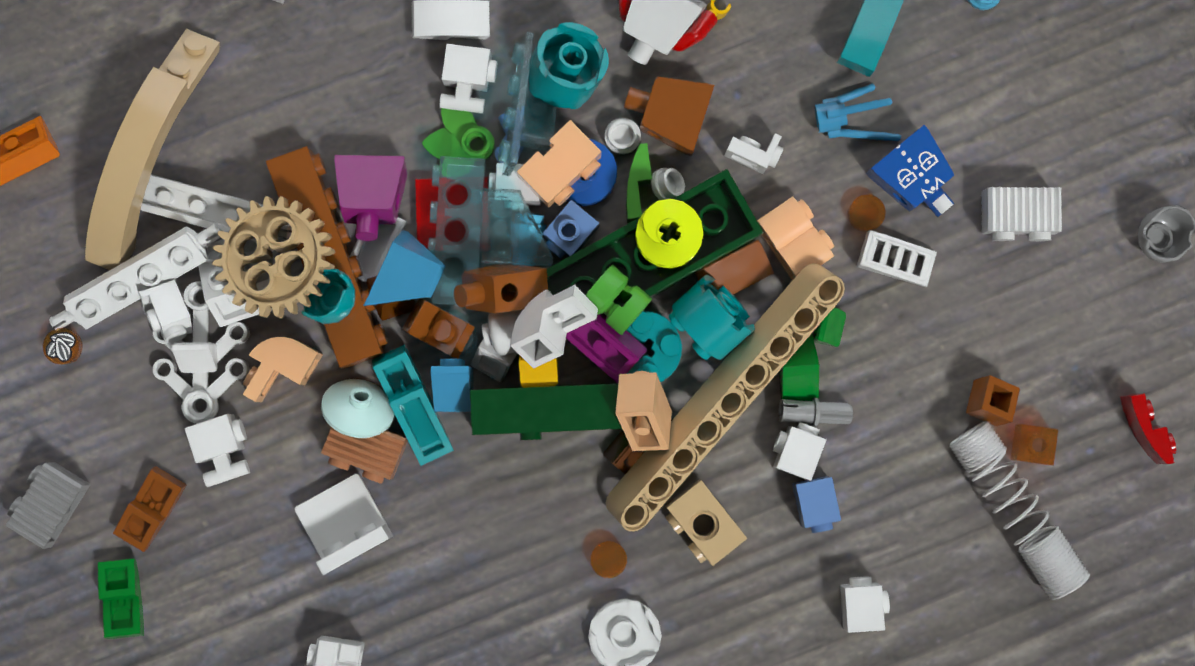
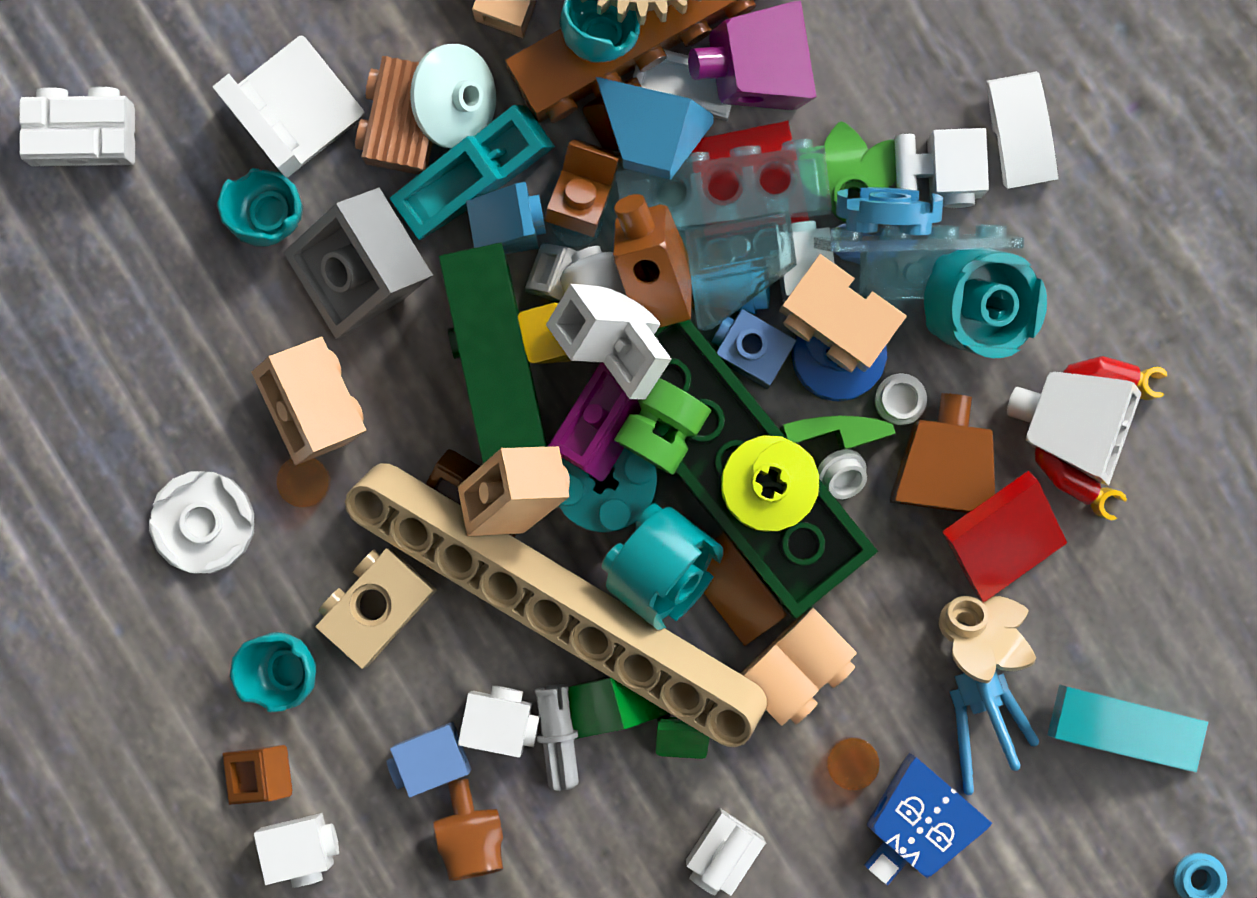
camera: 80 degrees right, 0 degrees up
(412, 557) = (260, 207): none -> teal hair
(462, 495) = (357, 262): none -> light grey slope
(492, 117) = (889, 207): none -> dark azure plate
(553, 545) = (309, 400): none -> light nougat brick
(730, 80) = (1005, 536): none -> red tile
(738, 601) = (273, 671): none -> teal hair
(748, 153) = (907, 580): white bracket -> none
(797, 102) = (990, 638): none -> plate
(806, 625) = (257, 774): none -> dark orange slope
(868, 250) = (796, 774): white slope -> none
(874, 483) = (470, 837): none -> dark orange piece
(914, 311) = (723, 854): none -> white brick

